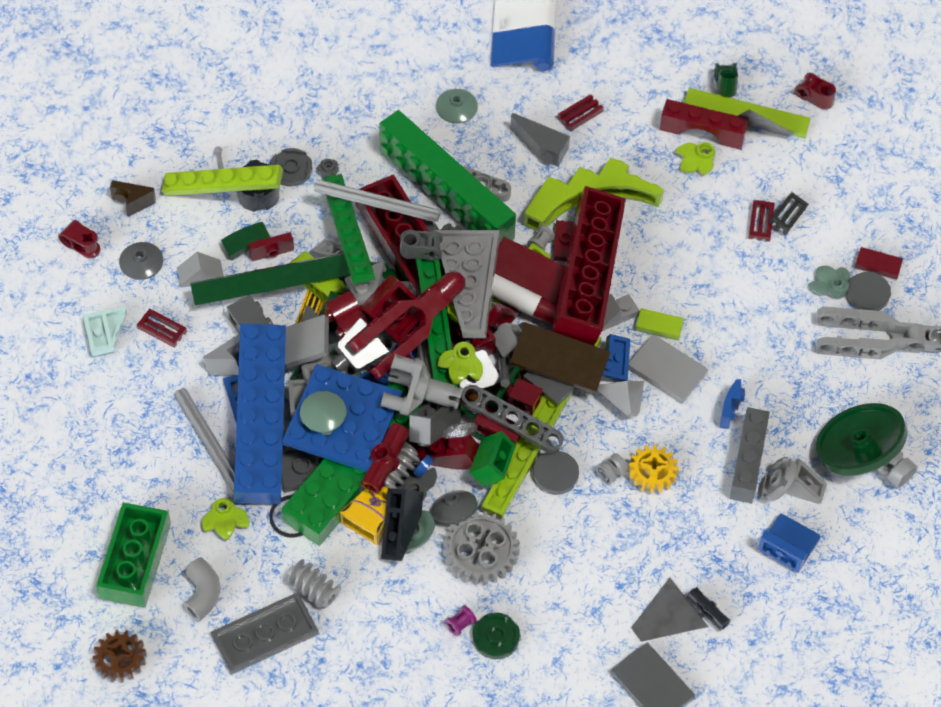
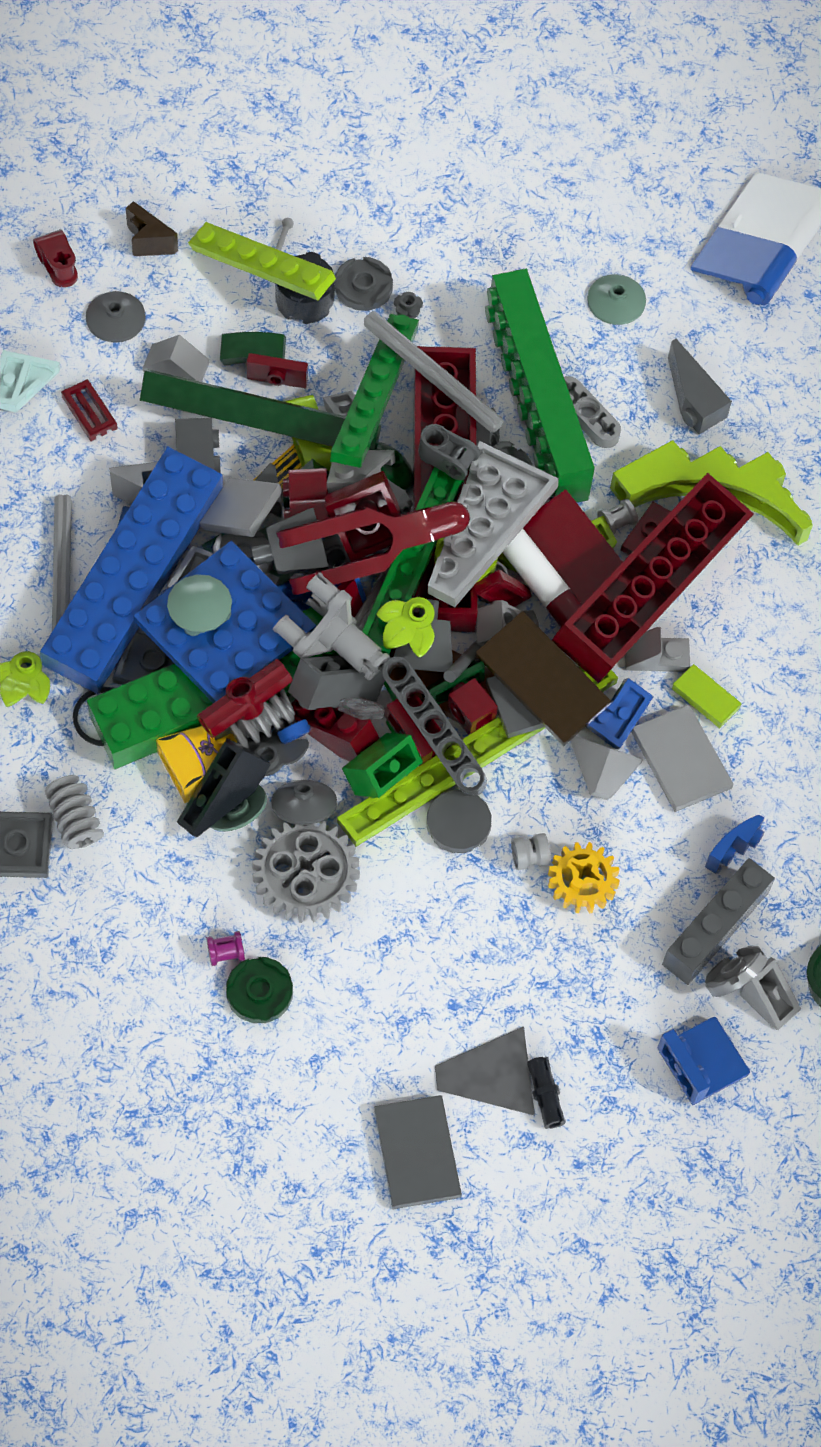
camera: 25 degrees right, 5 degrees up
(577, 110) = (767, 374): dark red tile -> none

